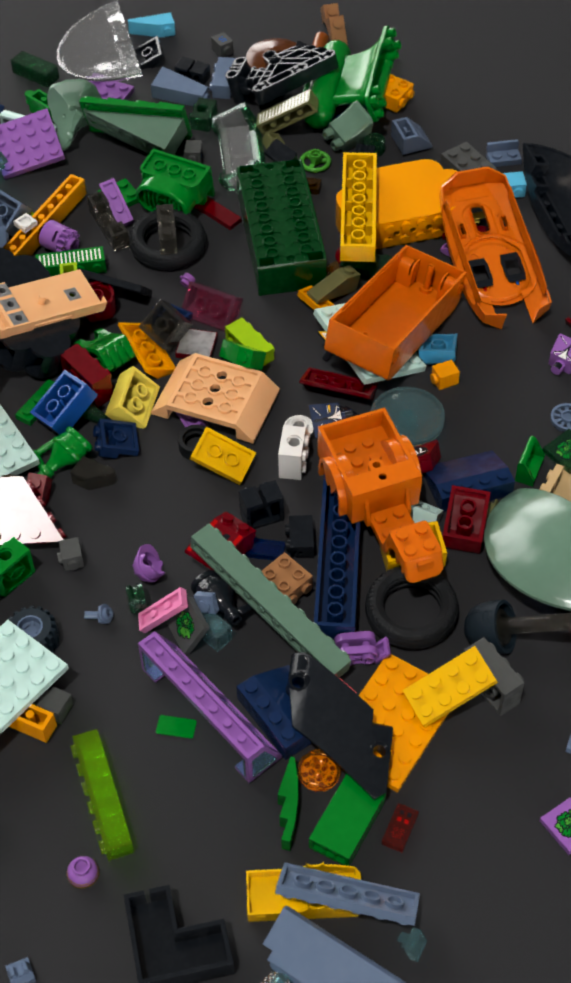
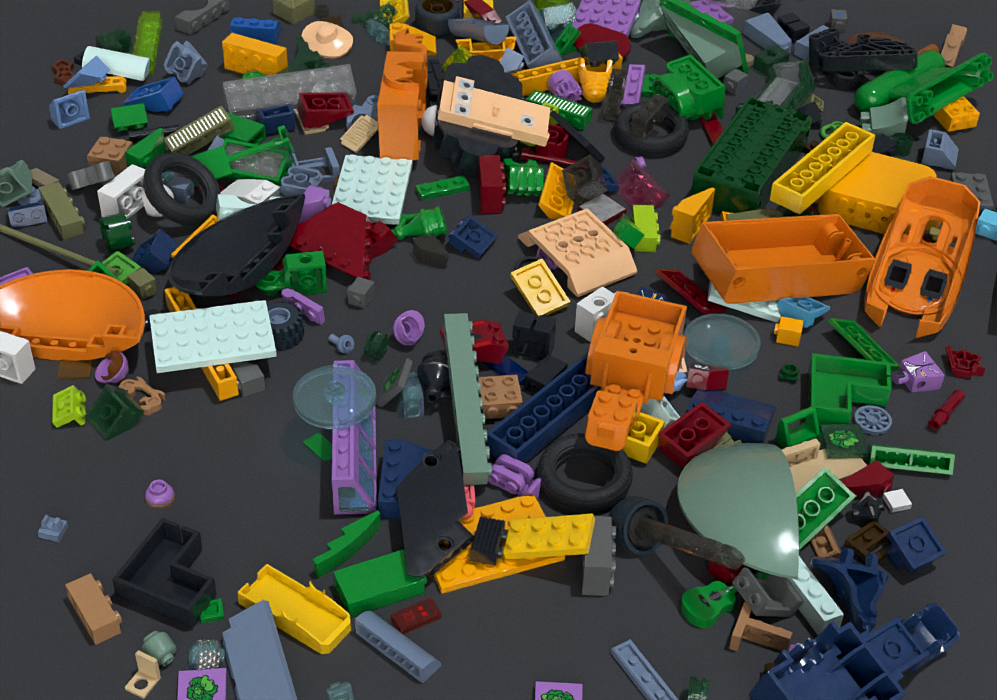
camera: 35 degrees right, 10 degrees down
(13, 182) = (565, 41): none -> green slope
(25, 223) = (545, 64): white tile -> none
(44, 170) = (595, 33): none -> dark red tile
(44, 599) = (307, 307): none -> medium lavender hinge
(63, 403) = (453, 191): blue brick -> none
(67, 187) = (599, 53): none -> black slope
(81, 220) = (594, 83): none -> light orange hair
(86, 324) = (528, 154): none -> dark red piece
(93, 414) = (472, 208): clear green cone -> none
(103, 795) = (220, 454): clear neon green brick -> none
(133, 398) = (513, 218): light yellow slope -> none
(162, 610) = (385, 360): bright pink plate -> none
(175, 678) = (334, 396): none -> clear light blue dish
(206, 602) = (419, 372): sand blue plate -> none
(237, 945) = (213, 612): none -> green tile
(281, 311) = (690, 214): none -> light orange slope
(287, 112) = (840, 84): olive brick -> none
(318, 771) = (389, 538): clear orange tile -> none
(348, 894) = (319, 622): sand blue plate -> none
(405, 724) = (488, 541): none -> black brick
(412, 865) = (396, 646): none -> sand blue brick
(475, 412) = (789, 372): none -> dark green plate
(507, 353) = (862, 342): none -> green slope
(524, 402) = (839, 381): none -> green piece

